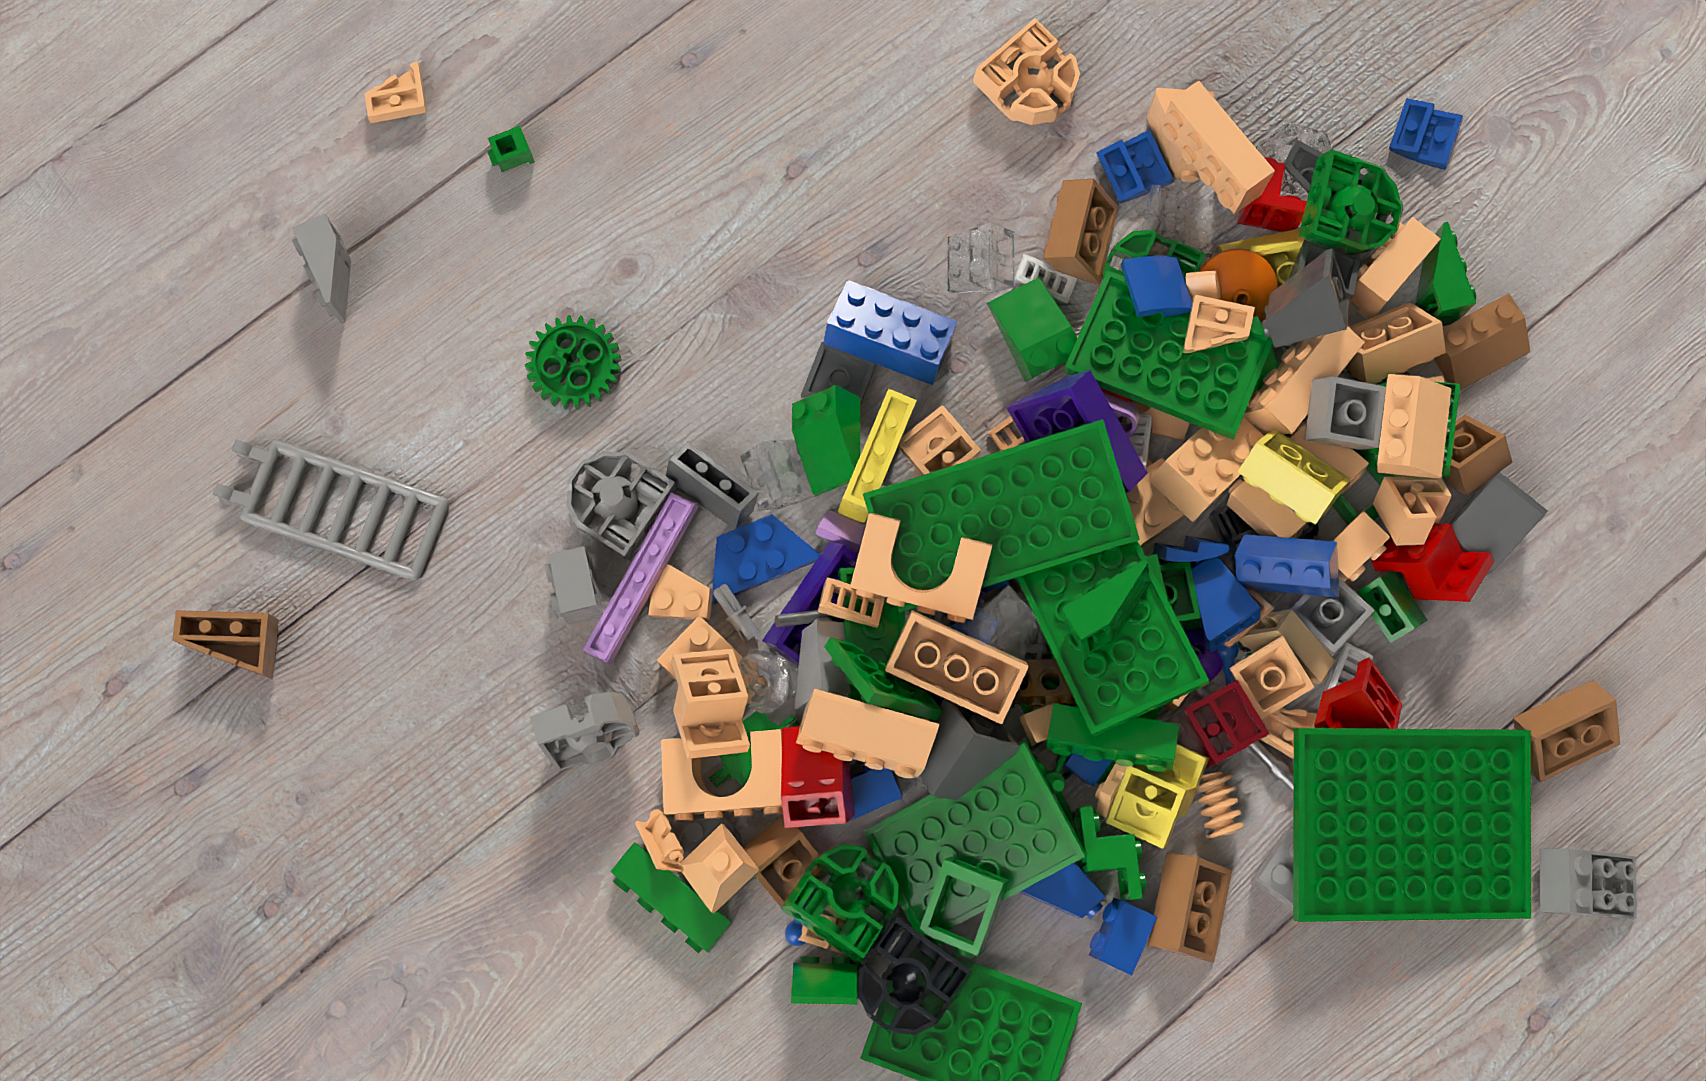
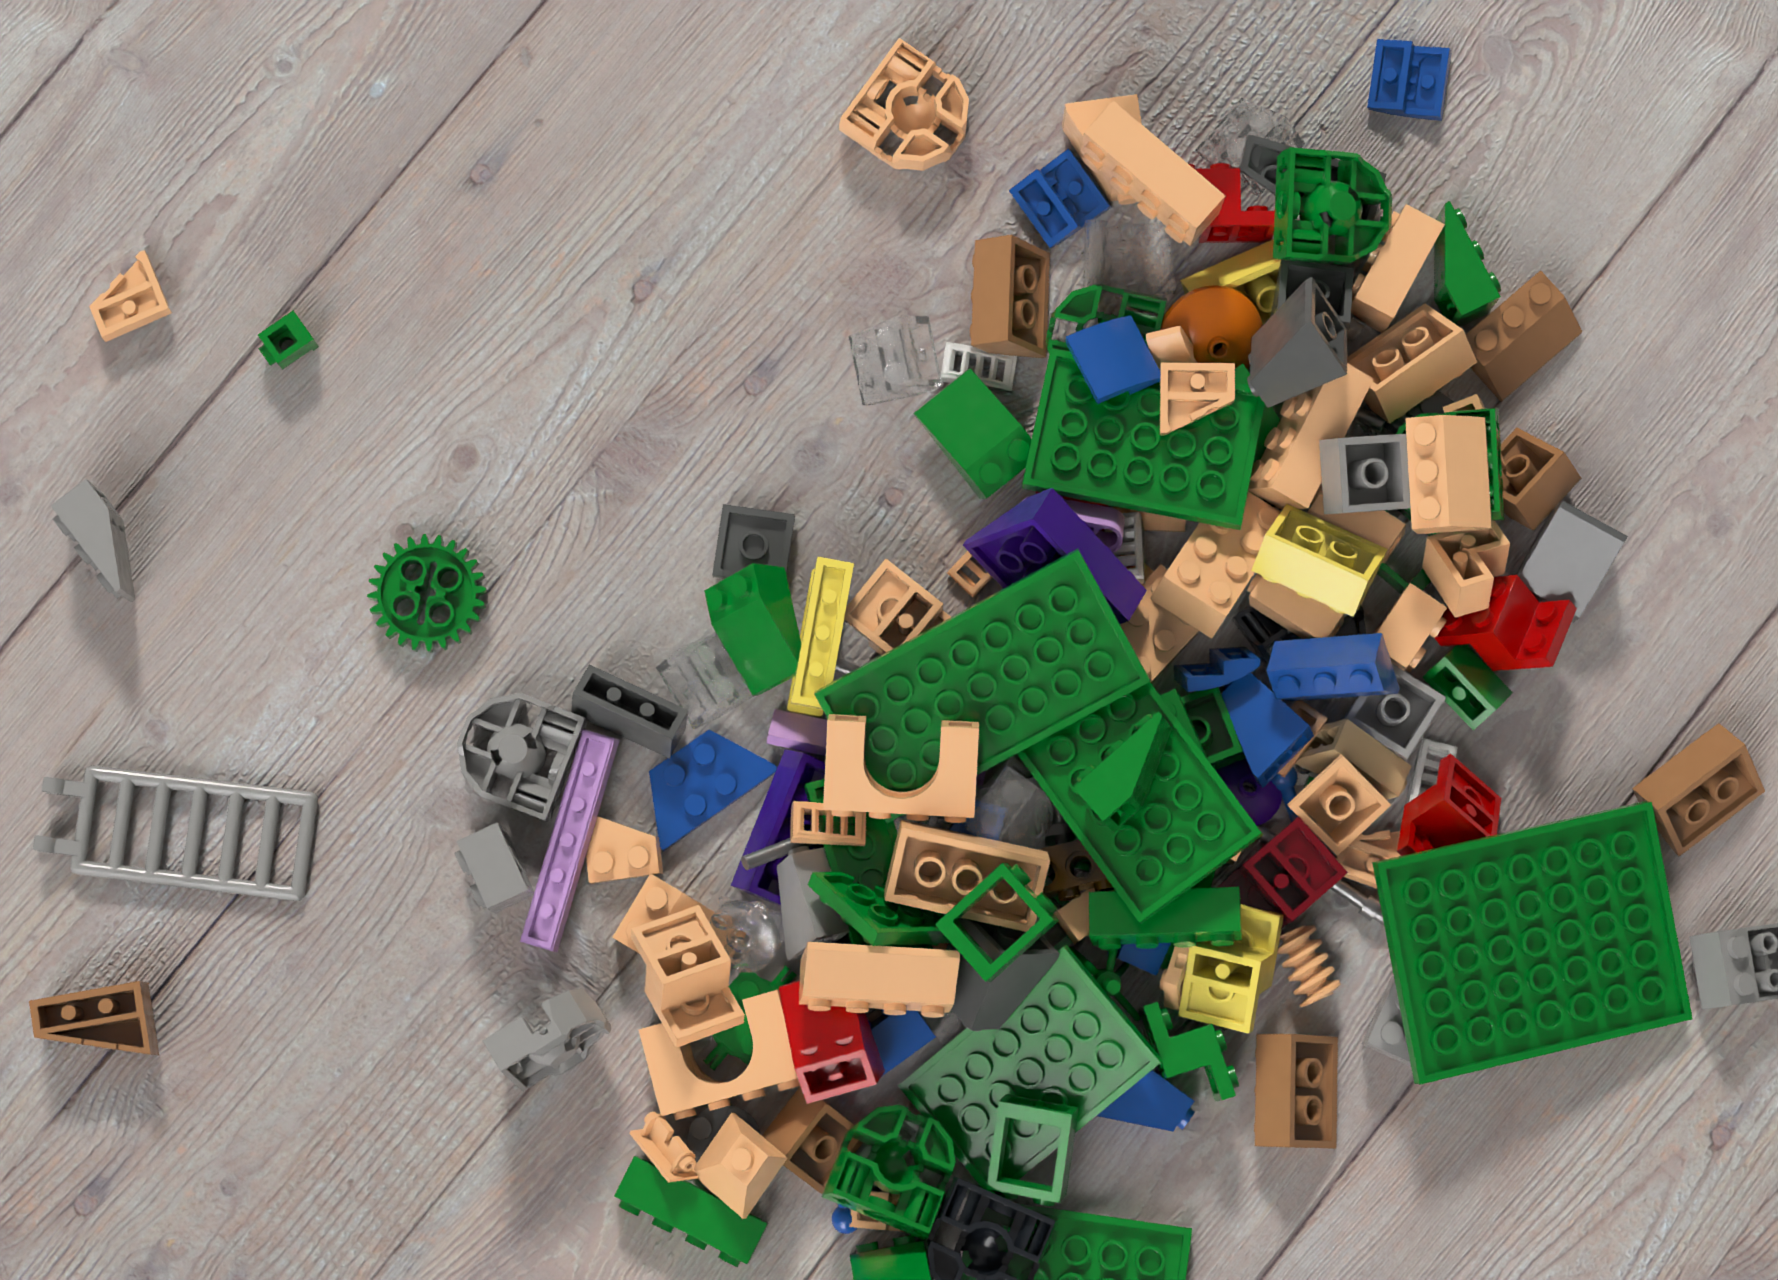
camera: 10 degrees left, 5 degrees up
(736, 614) = (692, 859): light grey axle -> none
(889, 332) = (803, 476): brick -> none
(957, 741) = (970, 949): none -> green window
(1122, 935) = (1222, 1141): blue brick -> none

